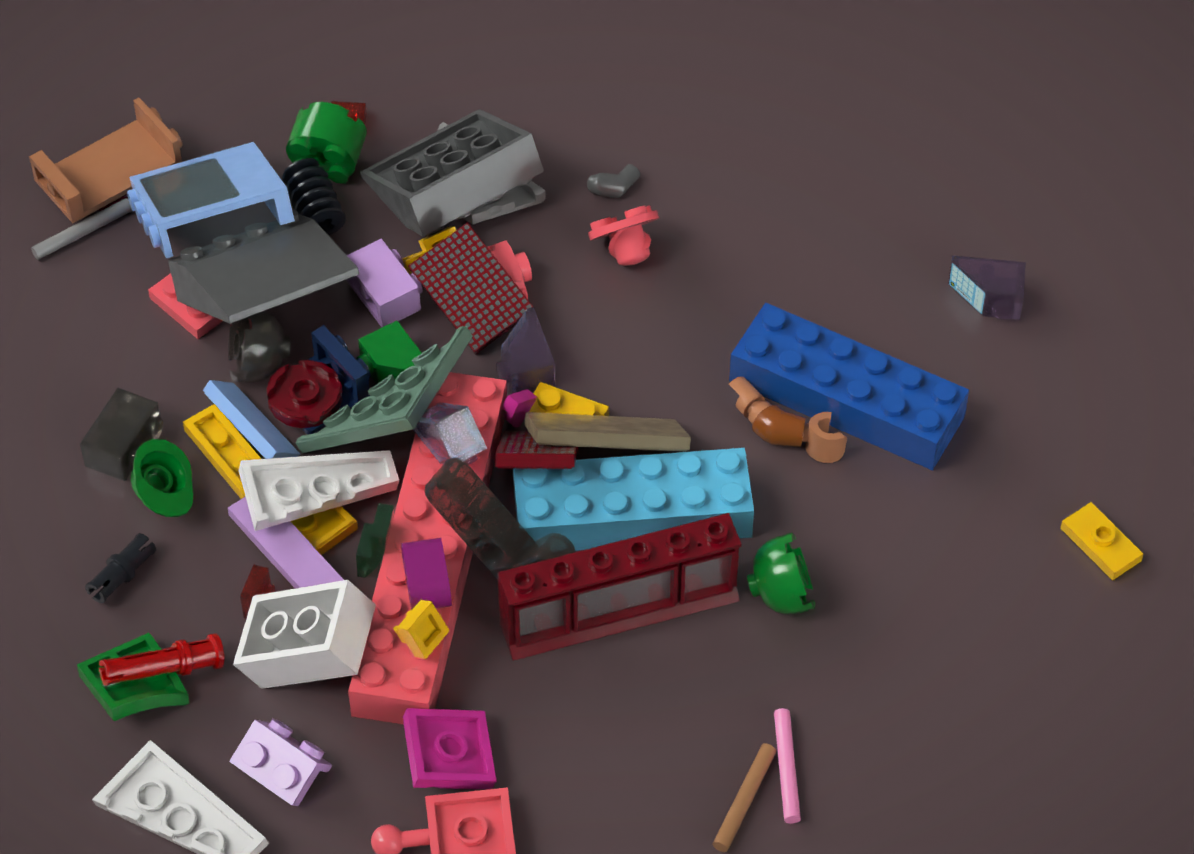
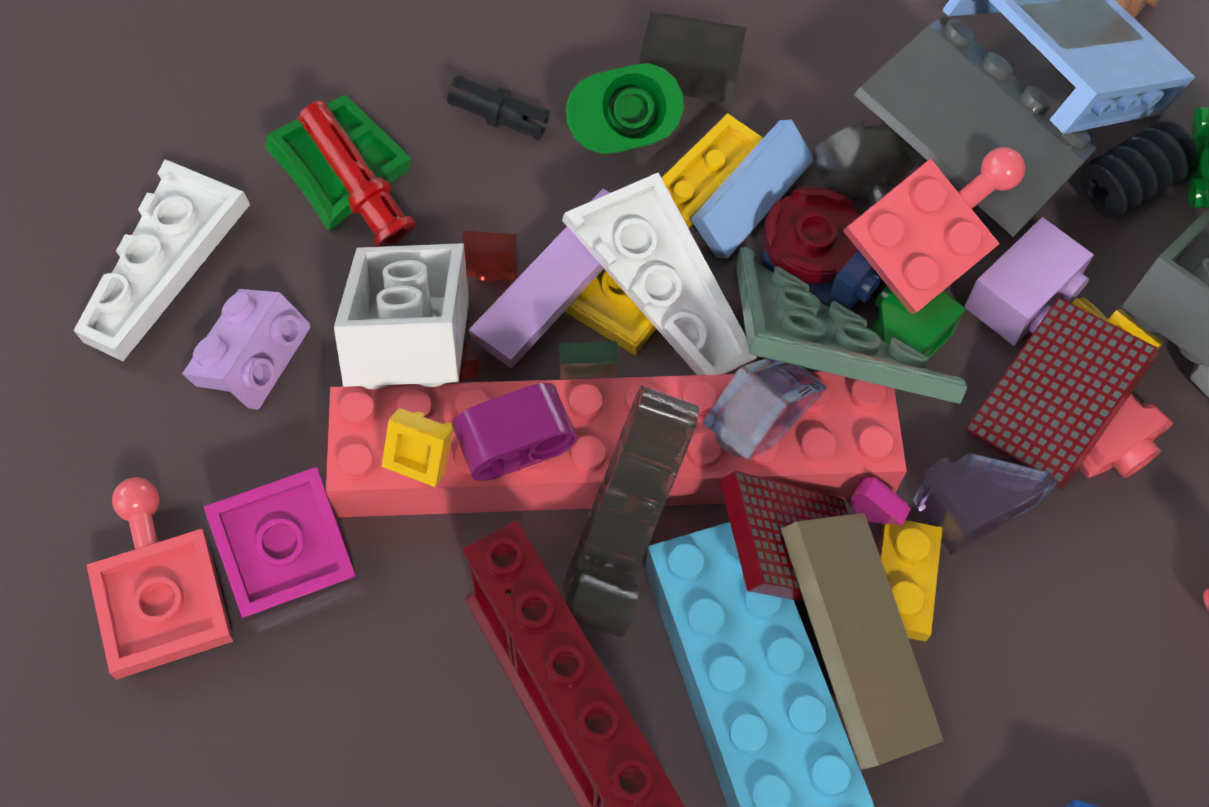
camera: 75 degrees right, 10 degrees up
(343, 316) = (926, 229): none -> coral plate

